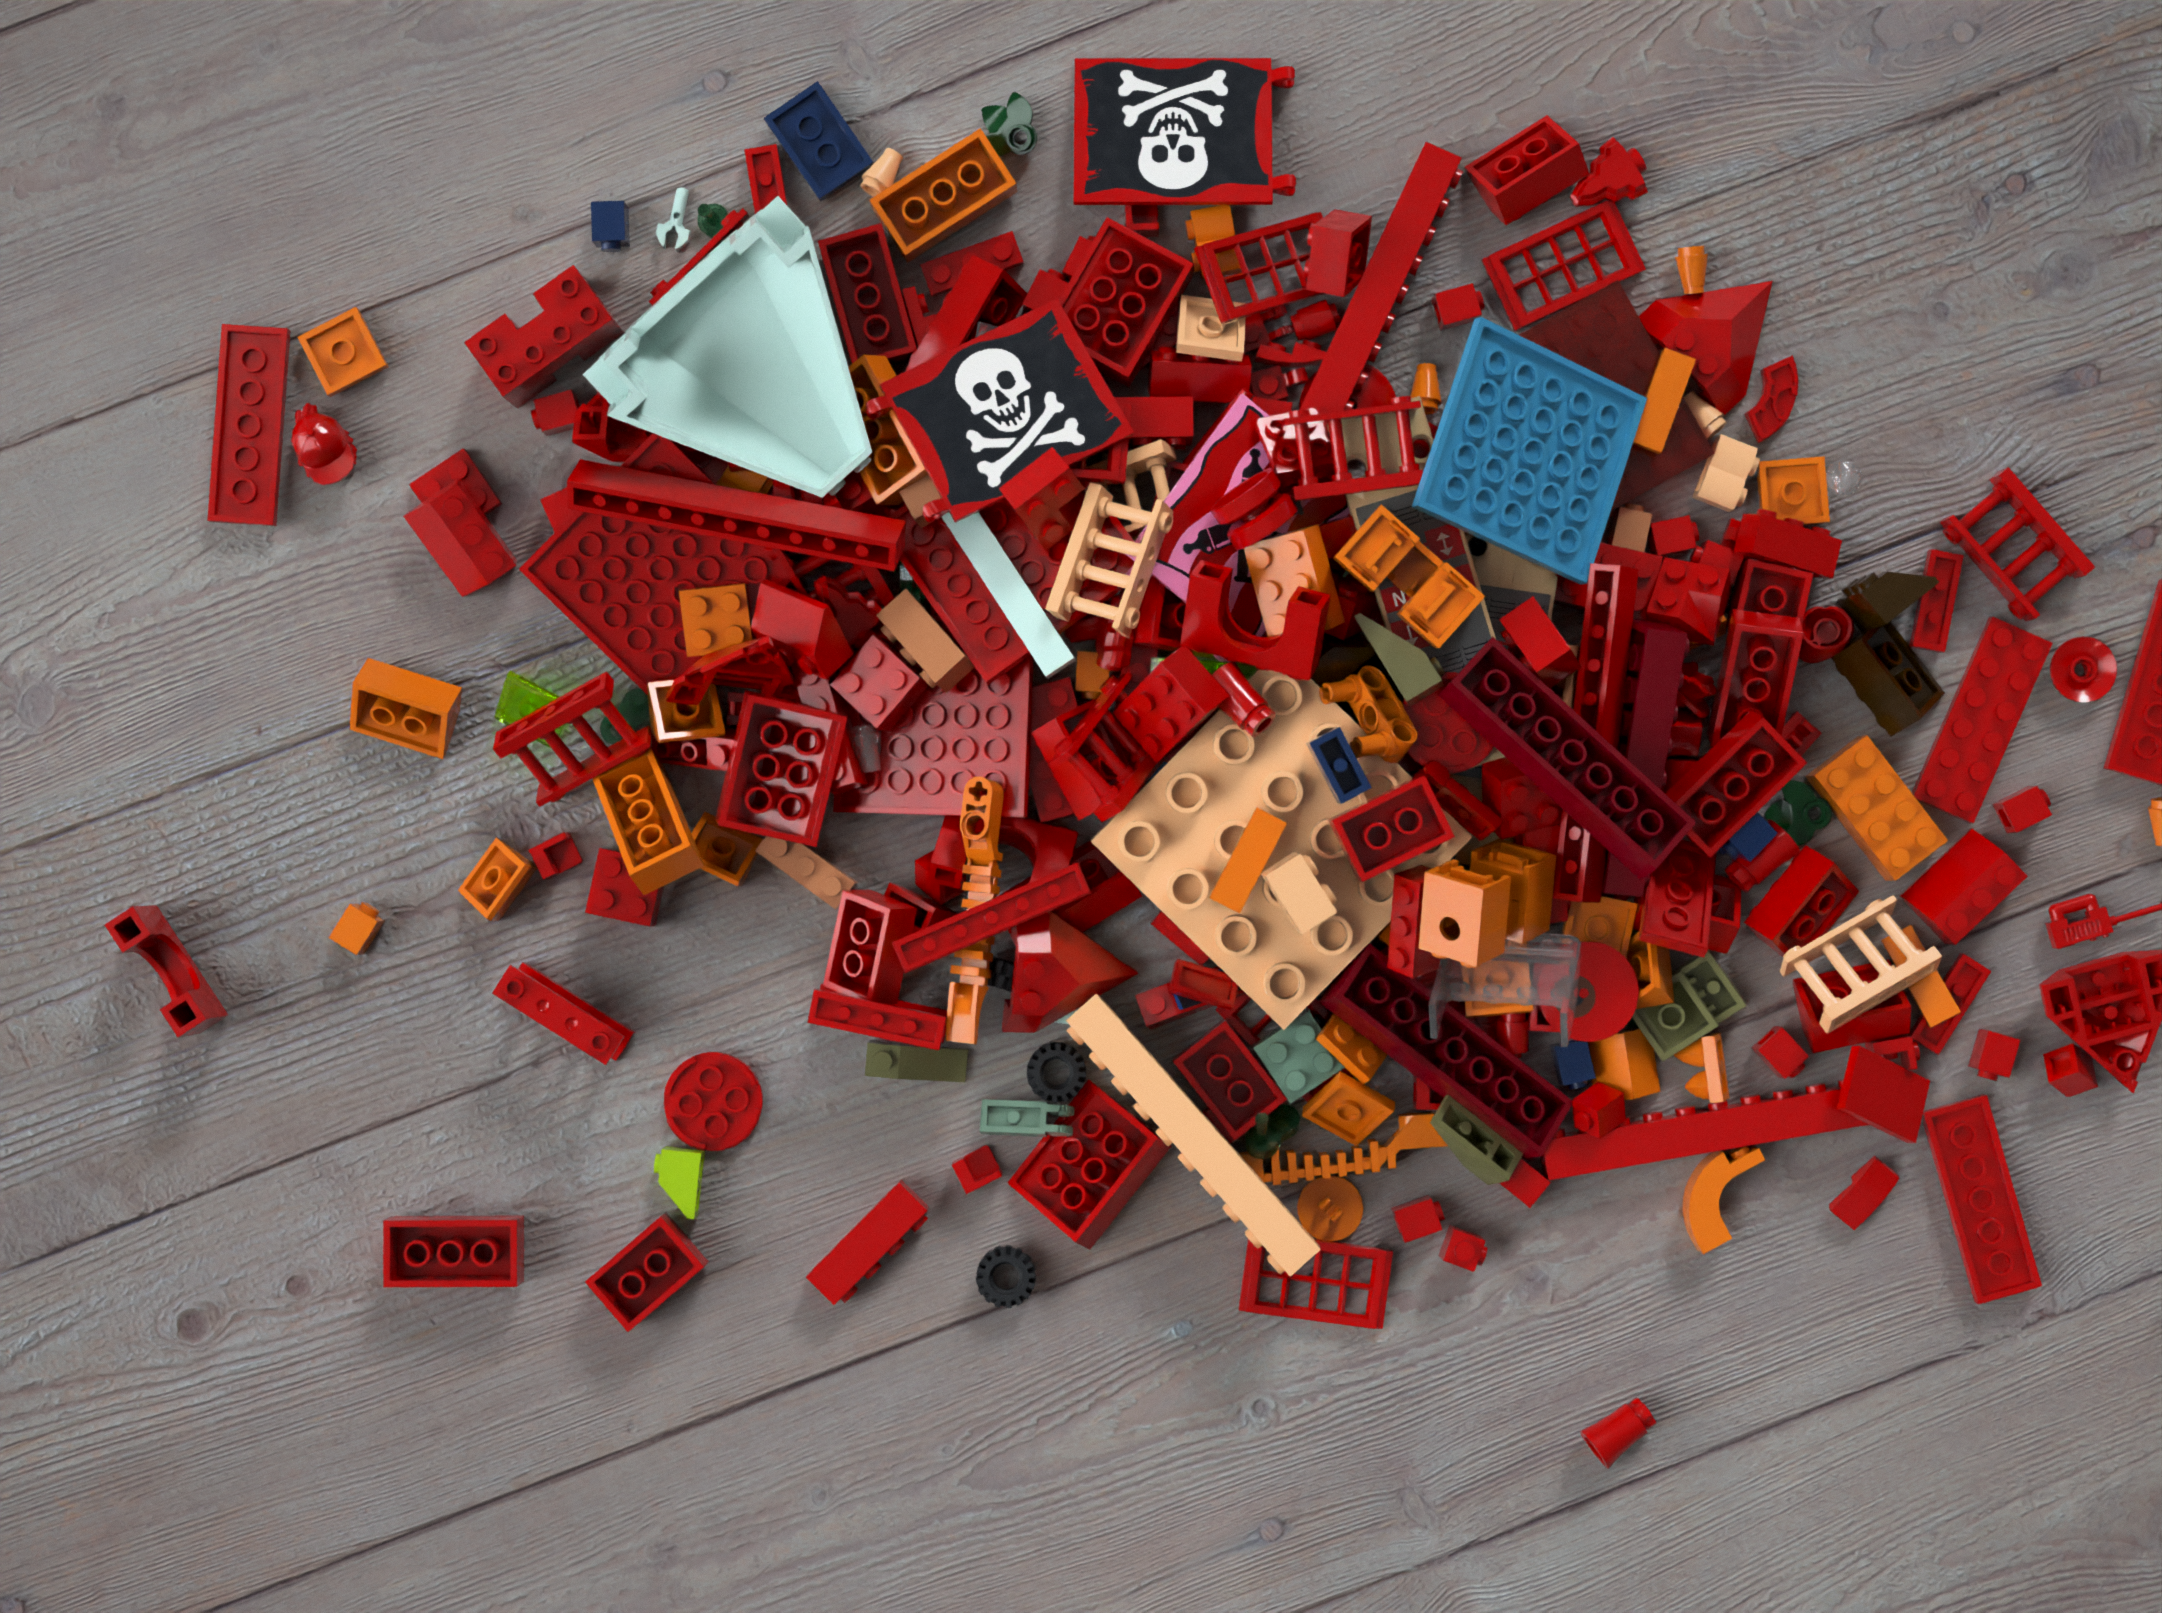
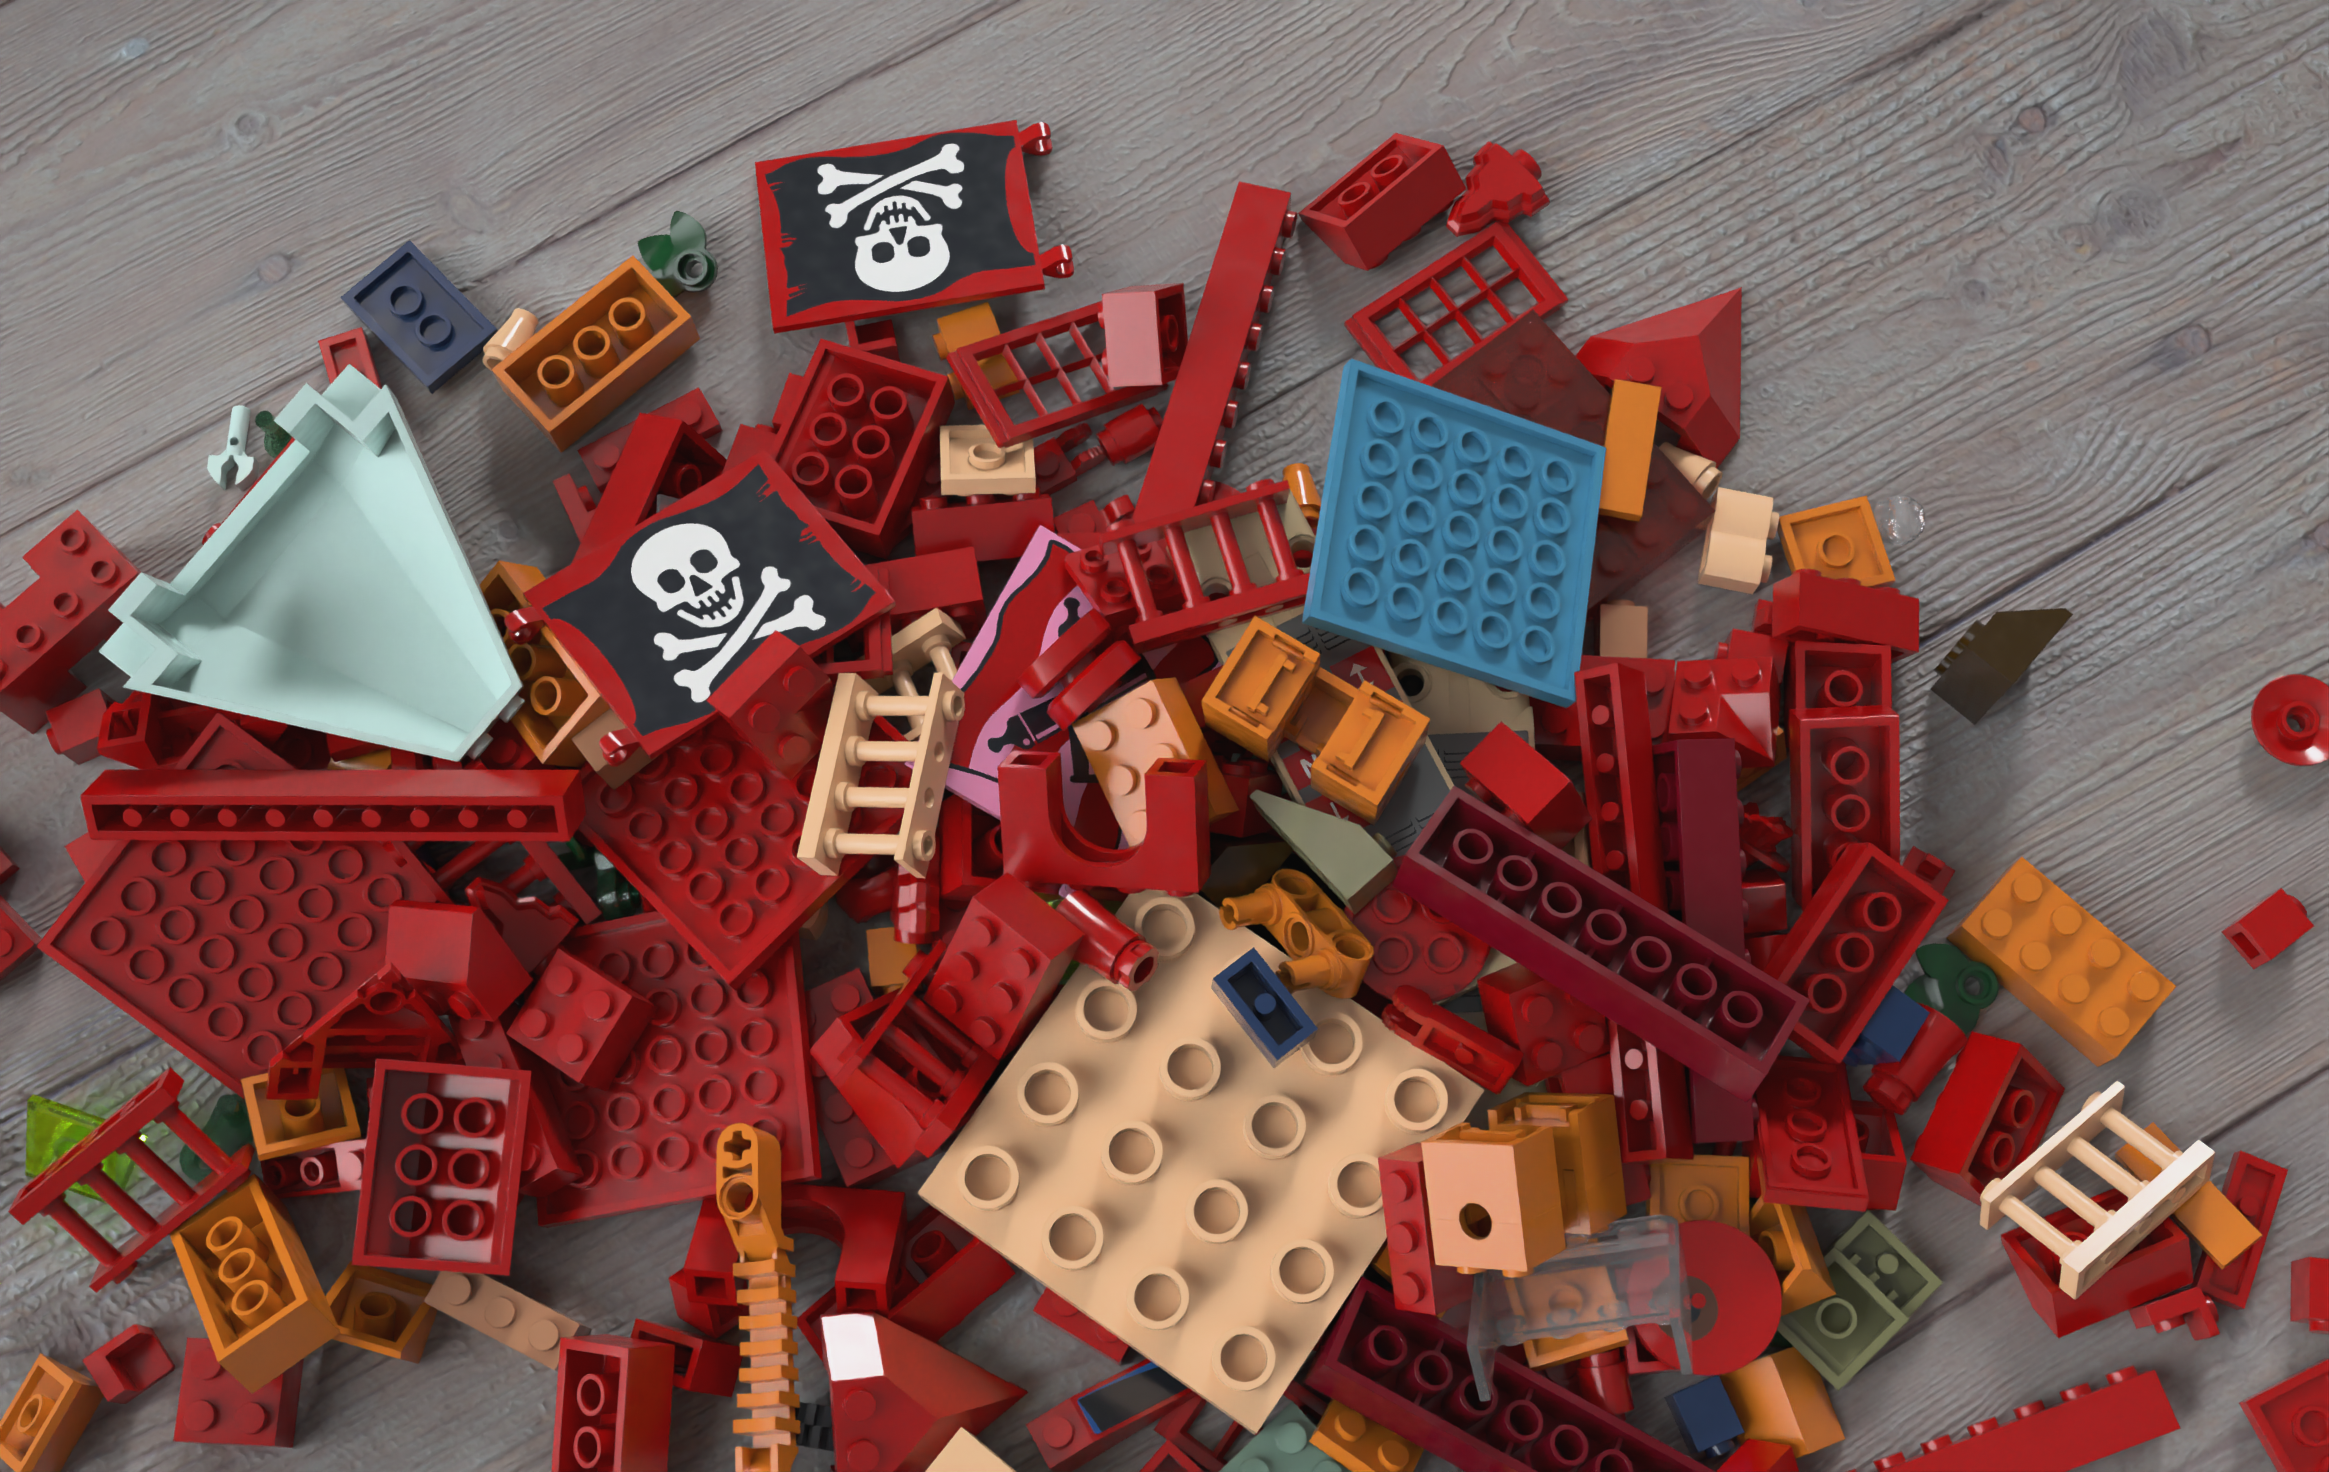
camera: 10 degrees left, 15 degrees down
(610, 225) = (142, 466): dark blue brick -> none
(715, 618) = (327, 964): orange plate -> none
(867, 746) = (573, 1116): clear cone -> none
(868, 294) = (504, 490): red brick -> none
(924, 642) = (636, 947): nougat brick -> none
(991, 918) = (782, 1336): red tile -> none
(1011, 593) = (748, 849): light aqua tile -> none
(1203, 984) = (1126, 1389): red tile -> none
(1247, 860) = (1154, 1177): orange tile -> none
(1299, 892) = (1239, 1205): light nougat brick -> none
(1302, 355) = (1084, 485): red slope -> none
(1391, 828) = (1359, 1088): red brick -> none
(1457, 306) = (1316, 384): red brick -> none
(1672, 536) = (1683, 634): red brick -> none
(1692, 268) = (1630, 286): orange cone -> none
(1707, 1053) = (1900, 1367): orange tile -> none
(1776, 399) = (1783, 436): red tile -> none
(1781, 1053) = (2011, 1347): red brick -> none
(1829, 629) = (1928, 731): red hair -> none
(1883, 1094) = (2180, 1381): red tile -> none
(1888, 677) = (2028, 776): dark brown slope -> none
(1937, 605) = (2071, 668): red plate -> none
(1963, 886) = (2214, 1054): red slope -> none
(1981, 719) = (2175, 816): red plate -> none
(2027, 513) = (2170, 525): red fence -> none

